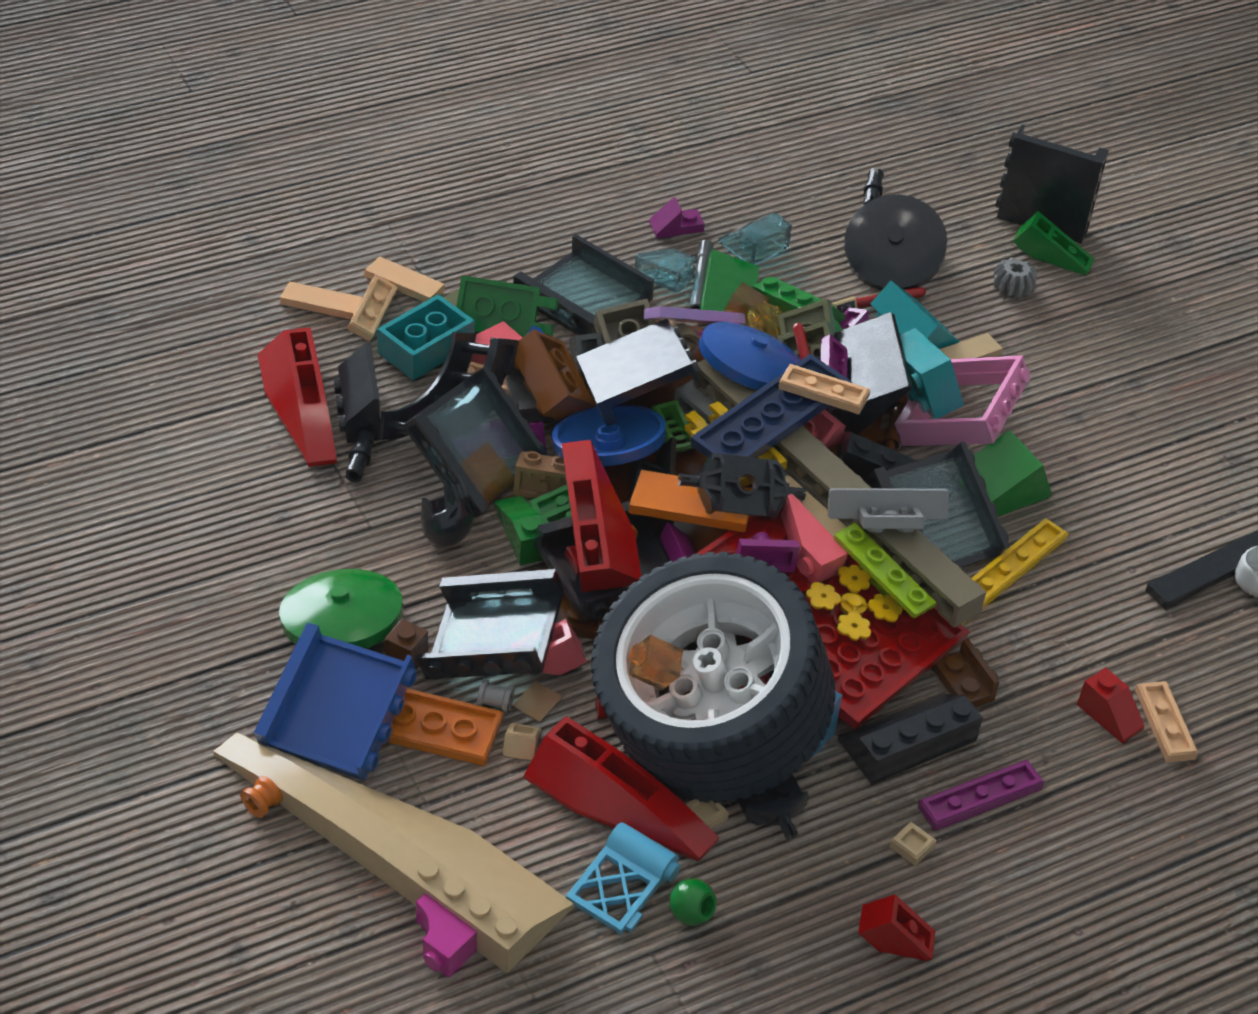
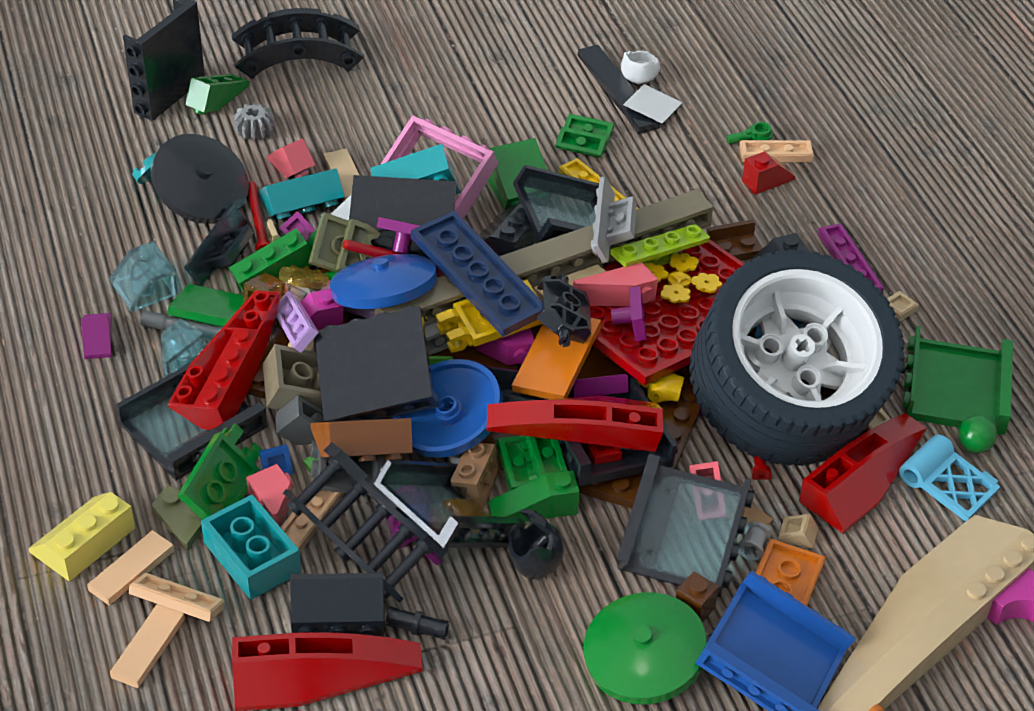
camera: 80 degrees left, 0 degrees up
(430, 247) = (85, 535): none -> light yellow slope
(613, 284) = (227, 366): none -> red wedge
(655, 662) = (802, 379): clear orange brick -> none
(787, 894) = (958, 382): none -> green panel
(819, 276) = (220, 246): none -> black bracket
(824, 388) = (464, 228): light nougat tile -> none
(873, 188) = (93, 187): black pin -> none
(896, 929) = (989, 326): red slope -> none
(963, 309) = (292, 159): none -> coral slope
(1112, 539) = (585, 135): none -> green slope
(1169, 267) = (296, 21): none -> black fence
(1190, 699) = (758, 131): none -> green plate
(1200, 595) = (652, 103): none -> white sticker

